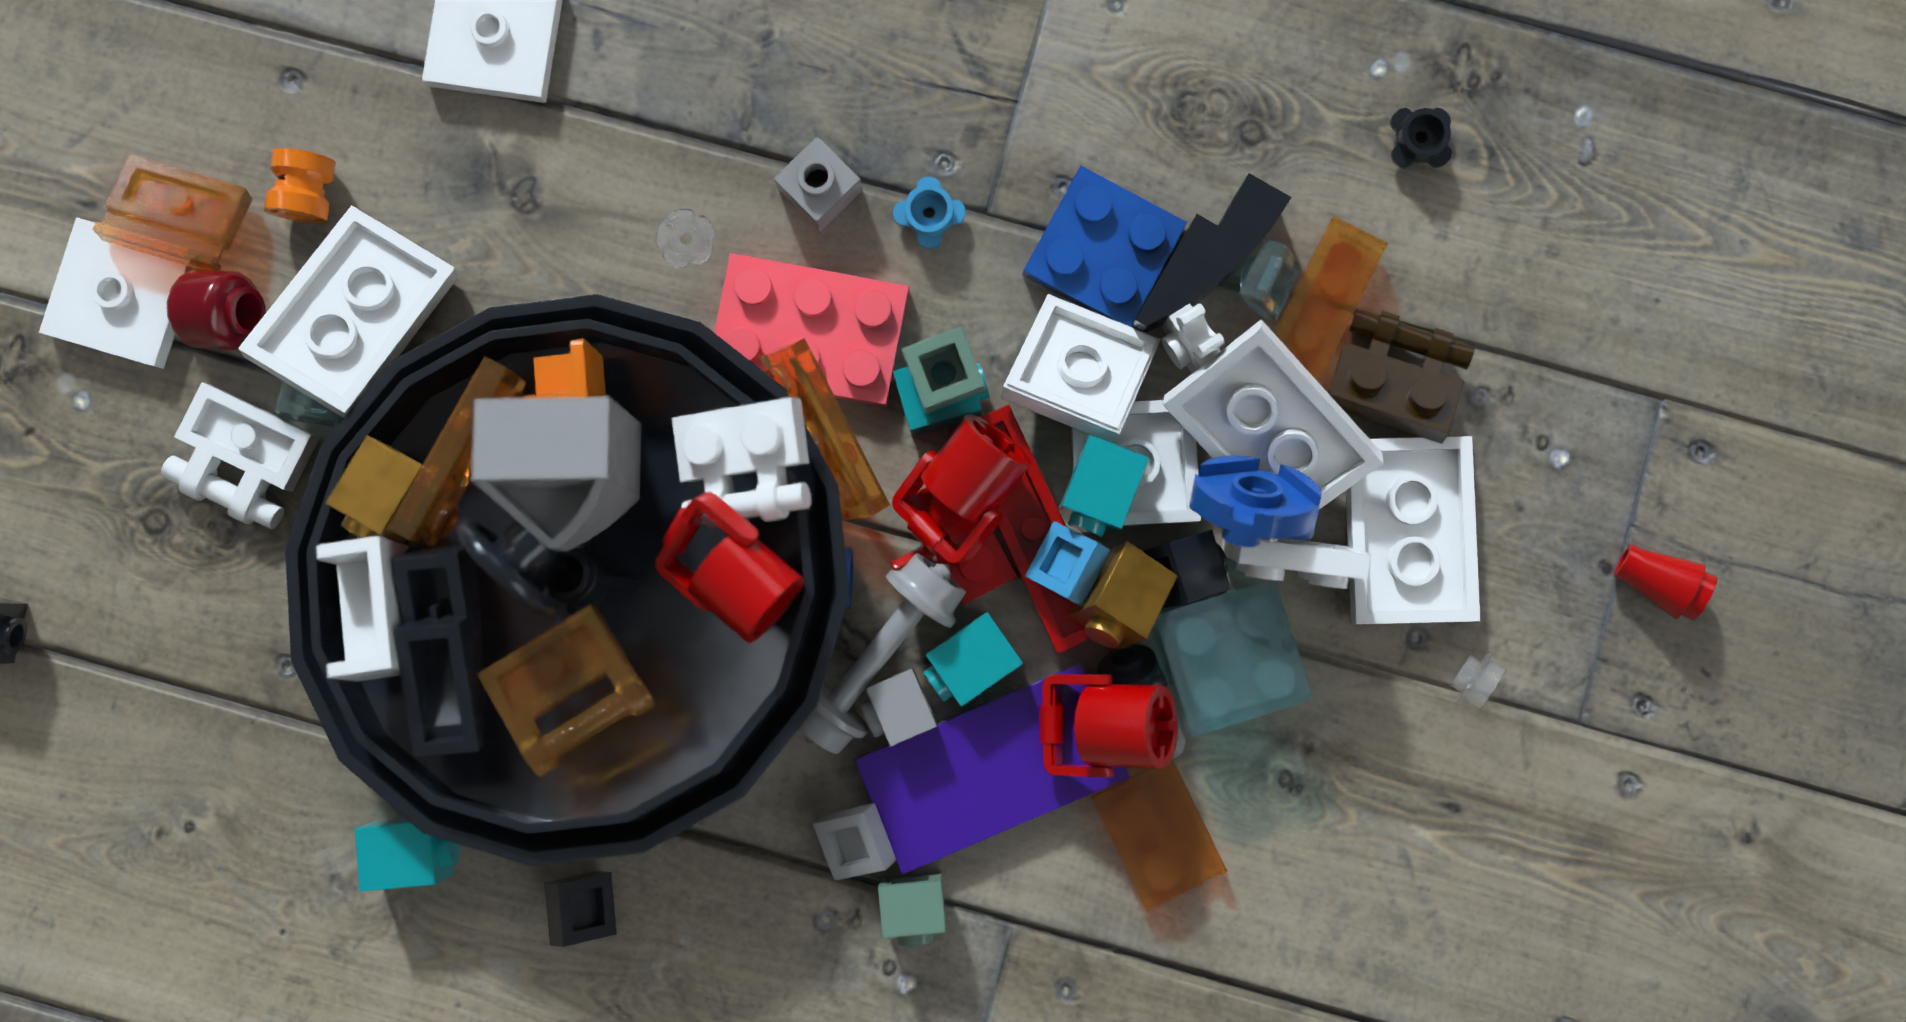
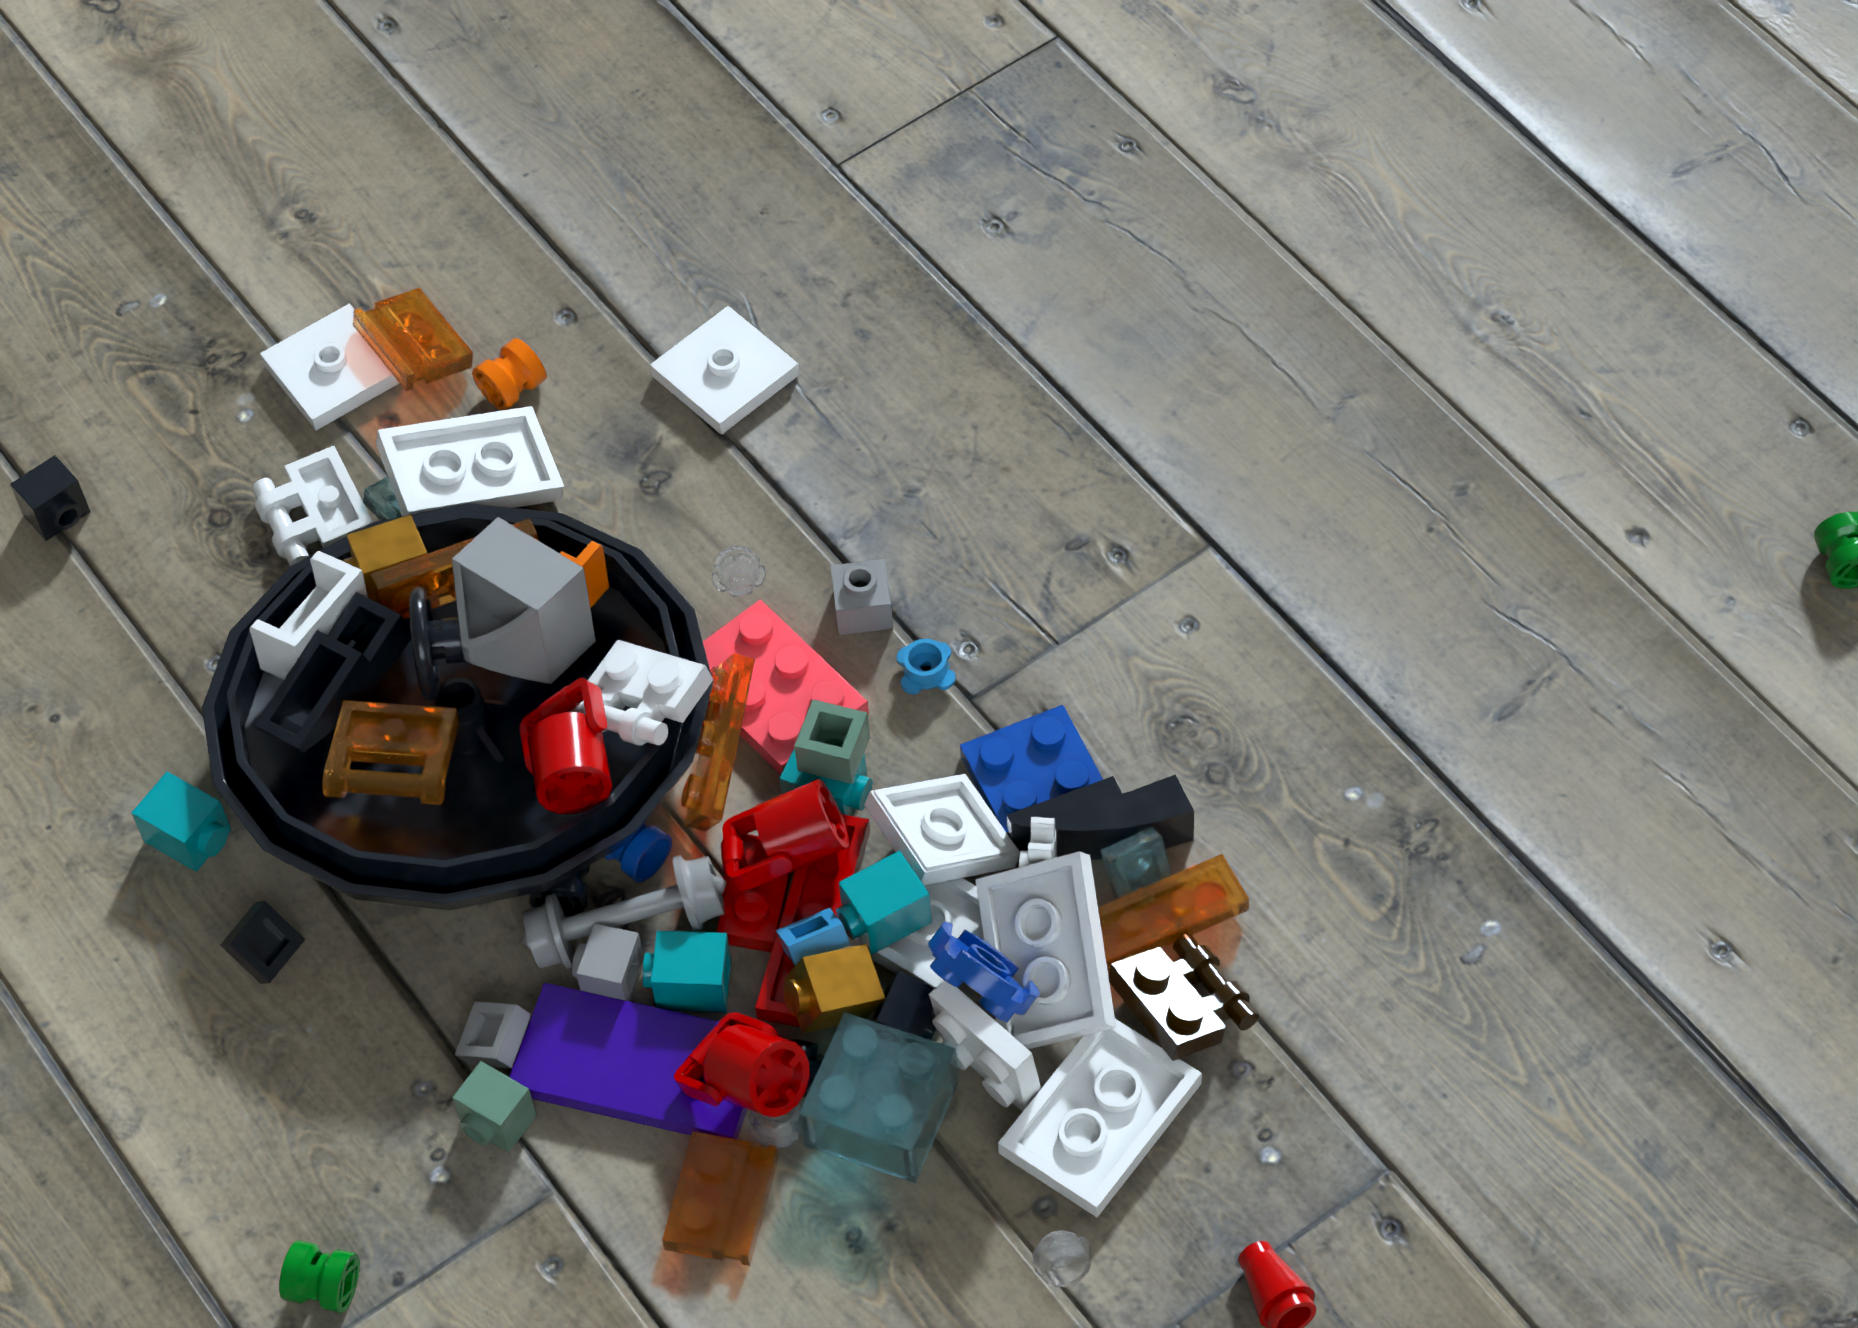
camera: 40 degrees right, 30 degrees down
(214, 308) = (381, 403): dark red head -> none
(1433, 124) = (1342, 838): black plate -> none

